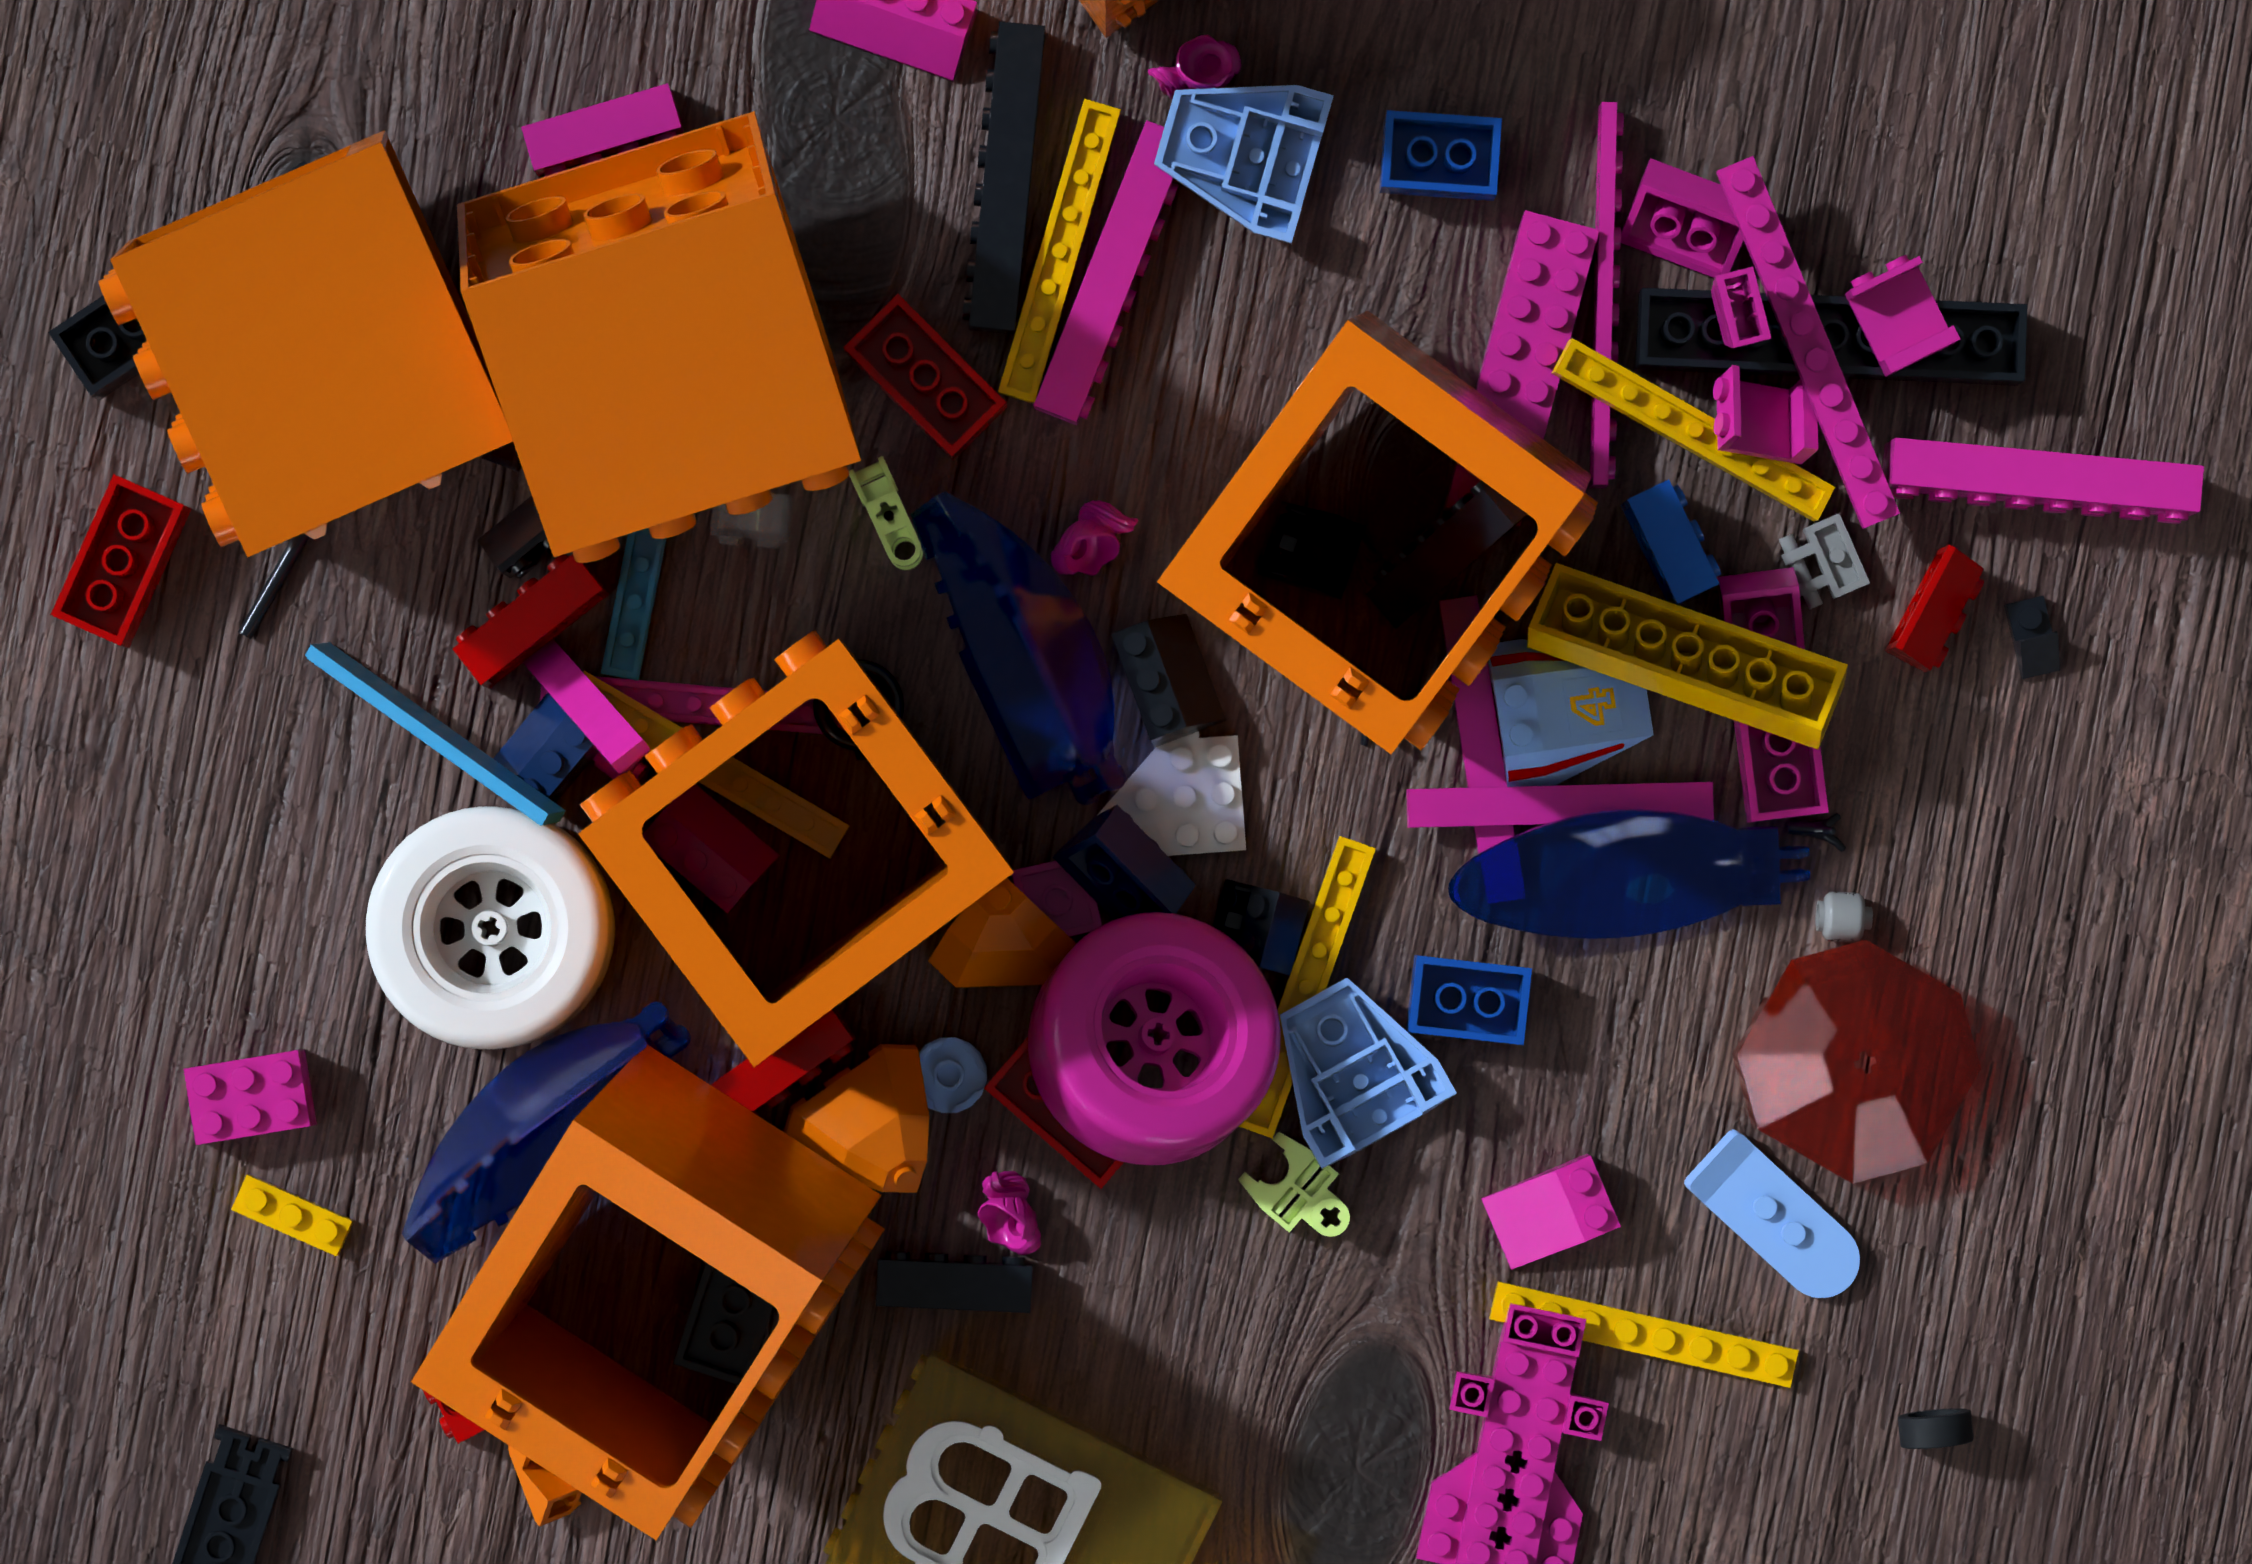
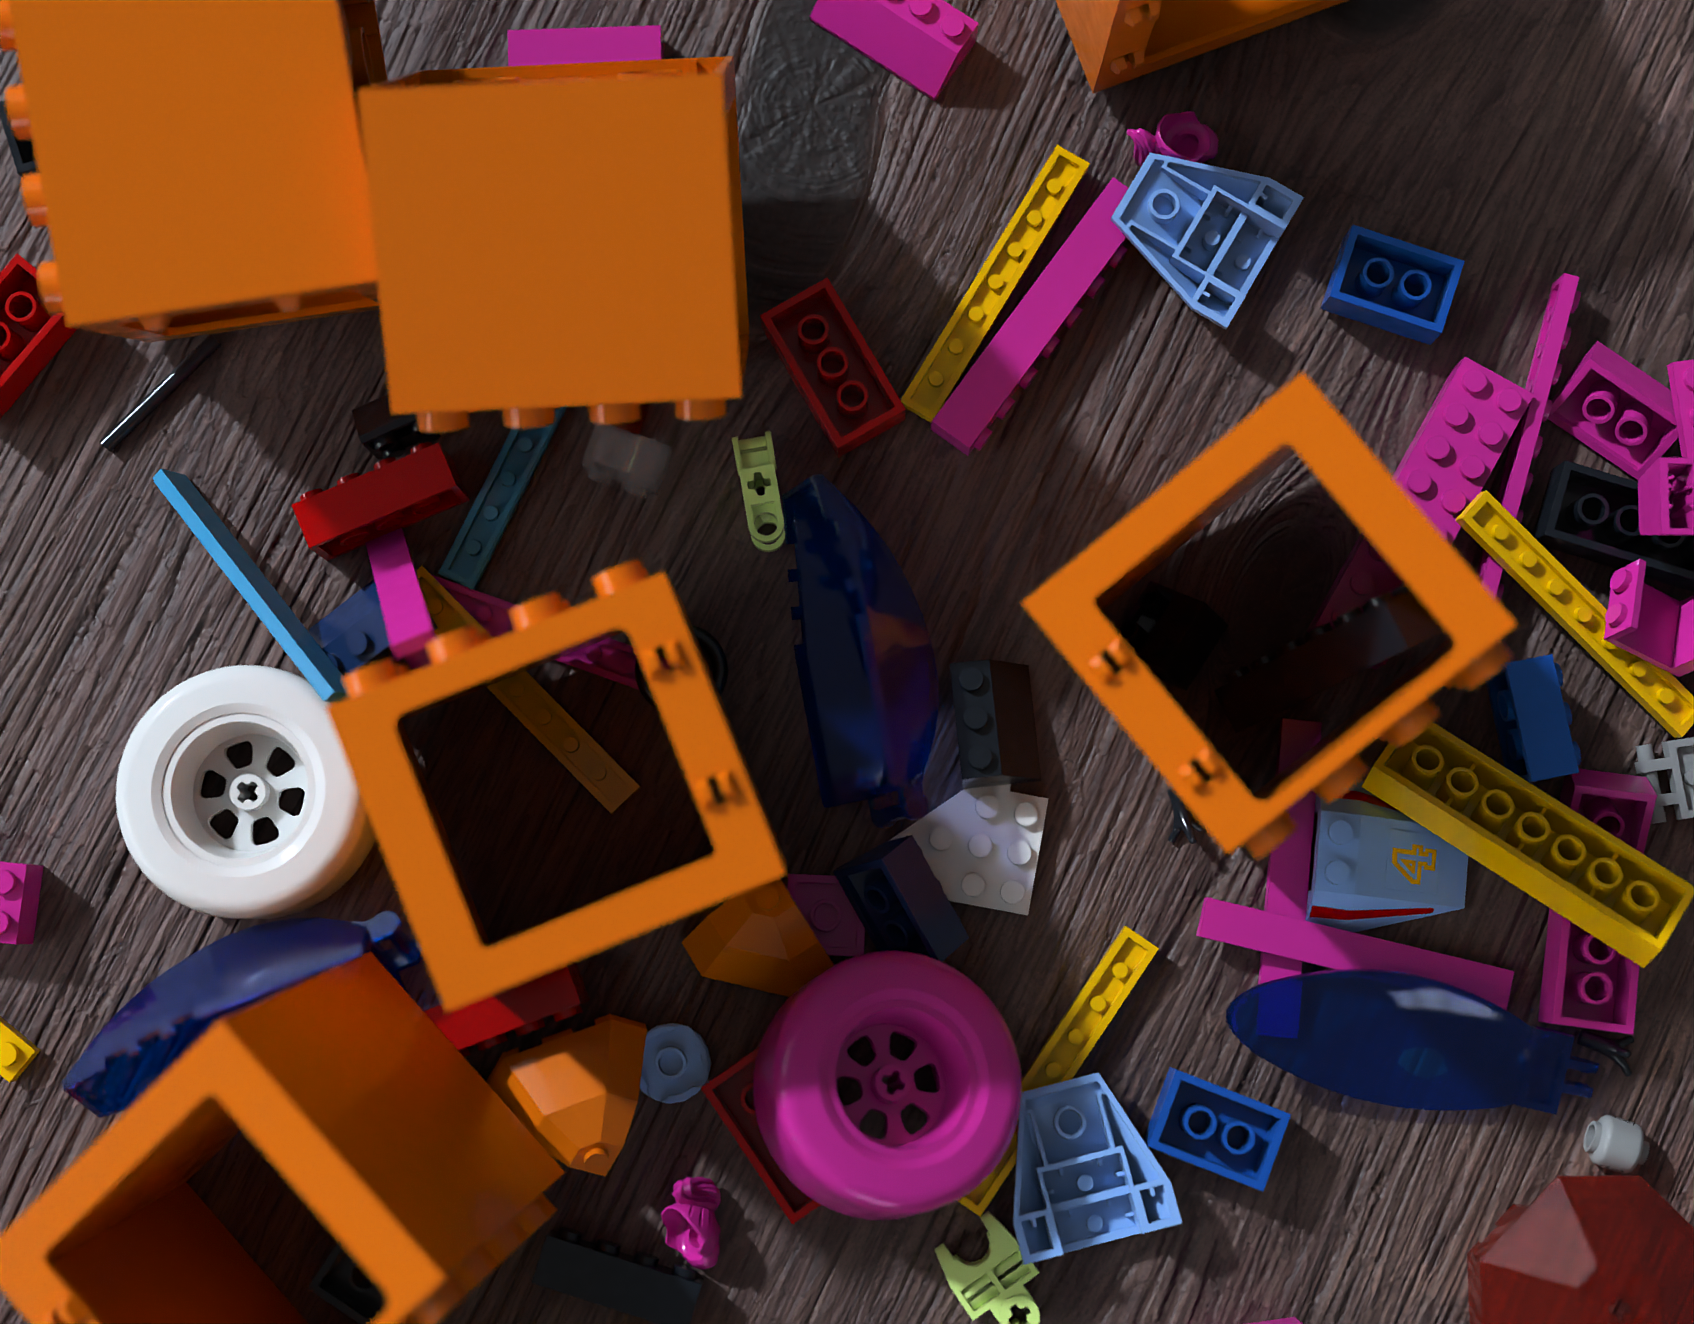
camera: 20 degrees right, 5 degrees down
(710, 847) = (495, 771): dark pink slope -> none
(1006, 179) = (962, 200): black brick -> none
(1091, 539) = (953, 568): dark pink hair -> none
(1262, 923) = (1026, 993): black slope -> none

